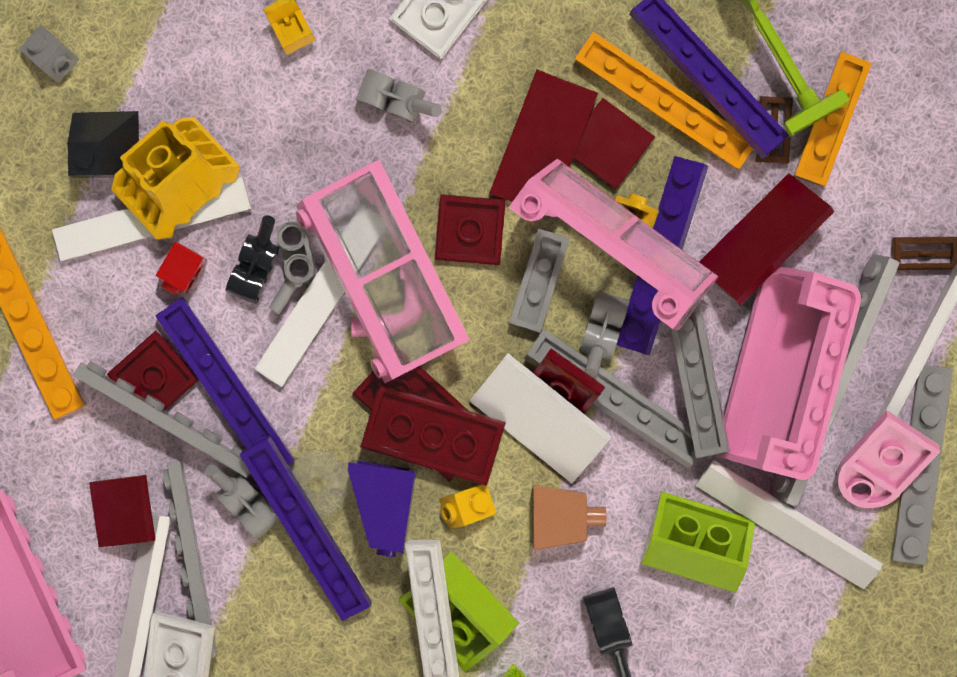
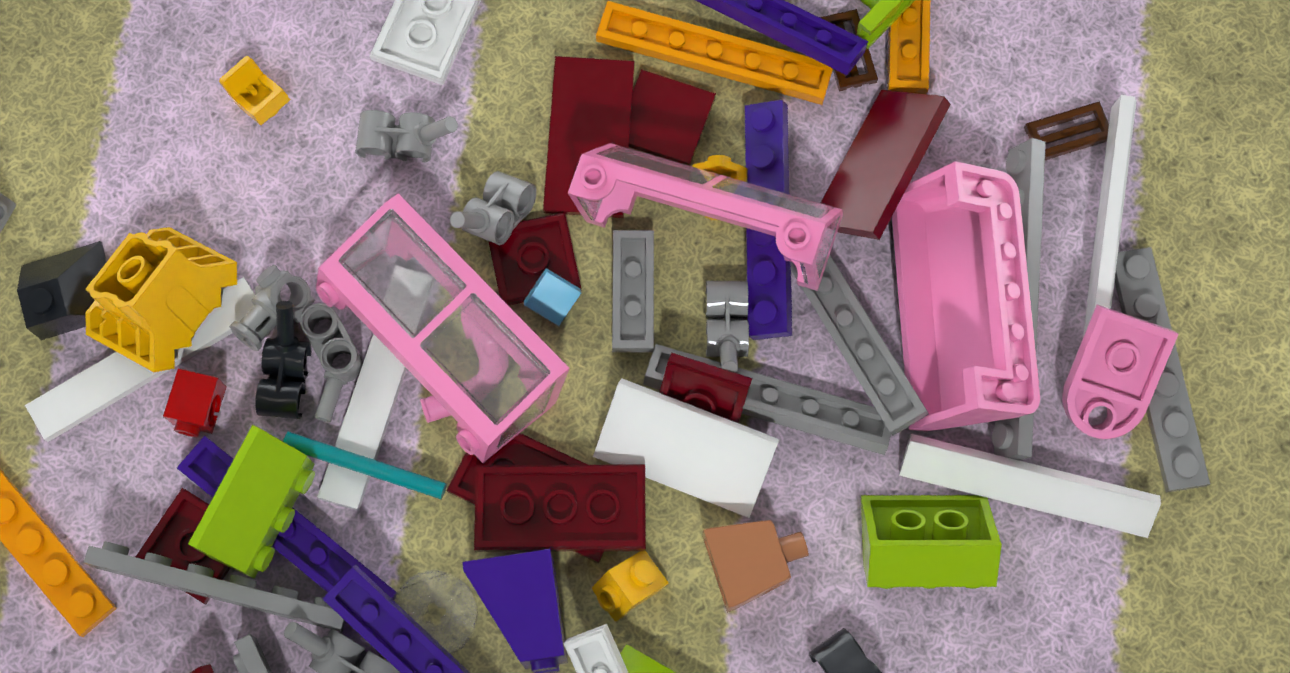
camera: 15 degrees left, 15 degrees down
(208, 369) = (253, 503): none -> lime slope
(256, 207) = (262, 316): none -> light grey connector
(296, 357) = (366, 465): none -> teal bar
(448, 192) = (503, 207): none -> light grey beam
(475, 267) = (552, 297): none -> medium azure tile

